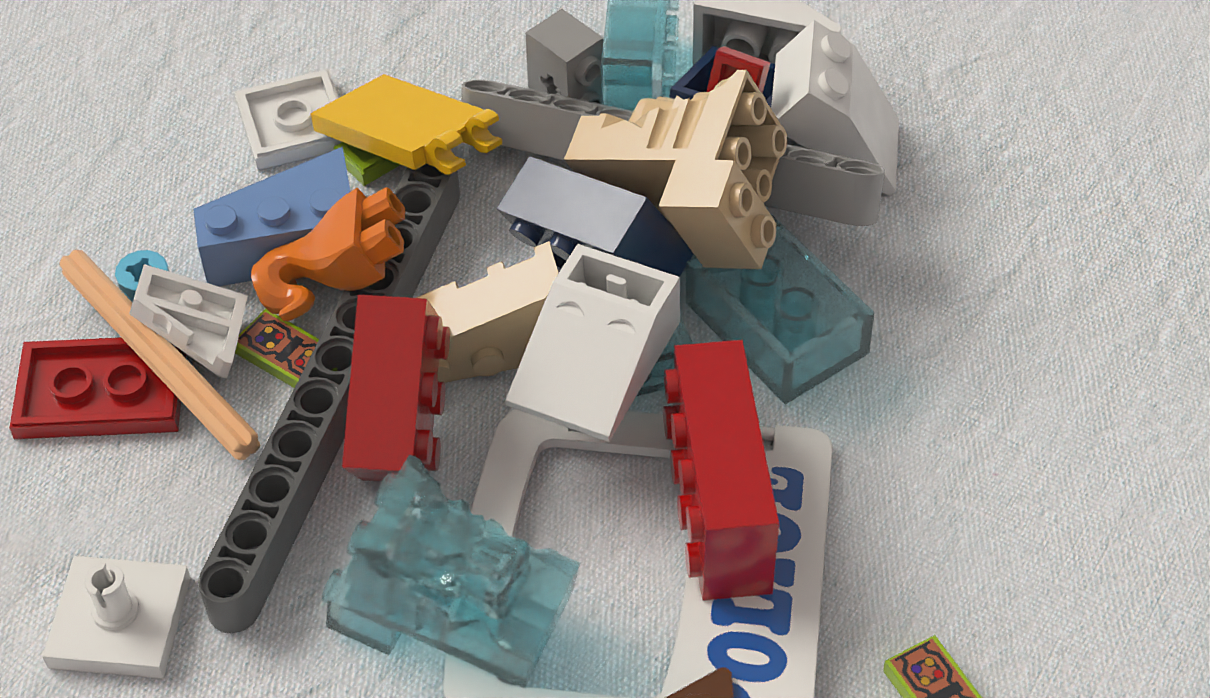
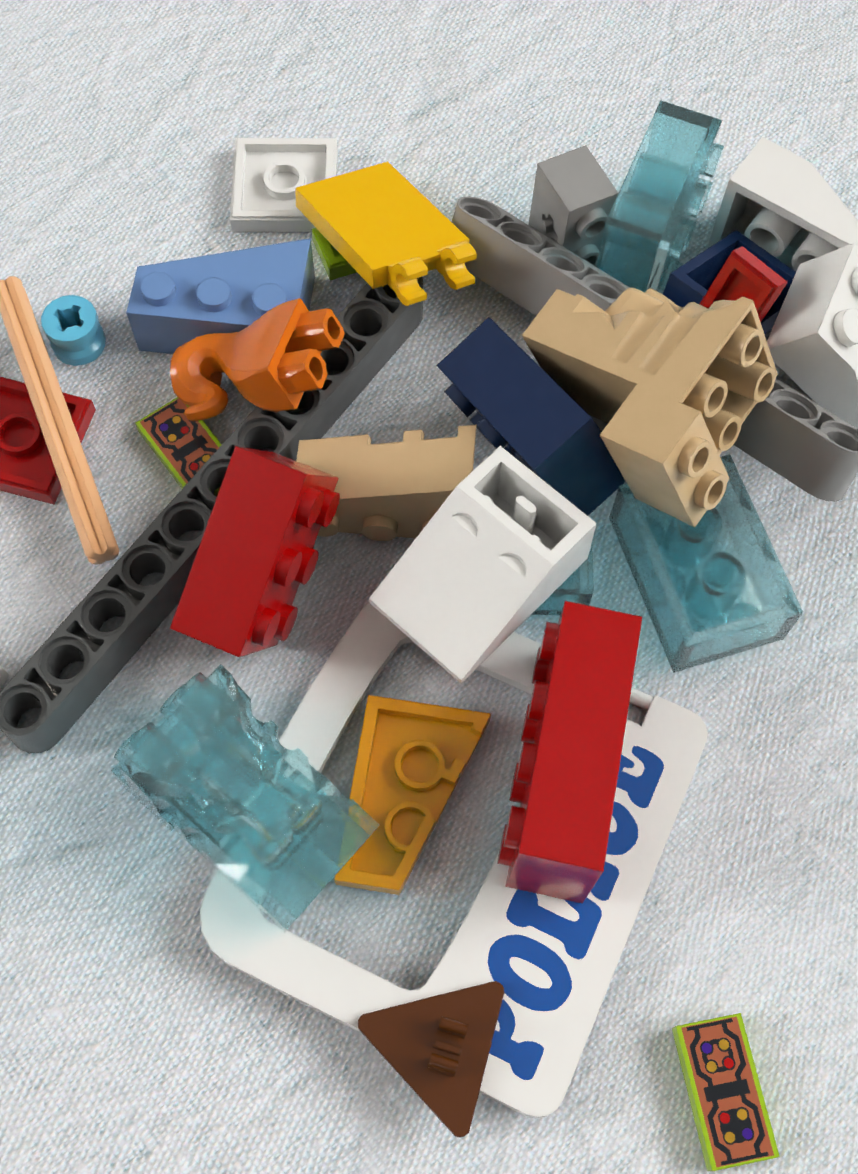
camera: 15 degrees right, 15 degrees up
(191, 316) = (98, 386): white wing -> none
(594, 527) = (403, 780): none -> light orange wing

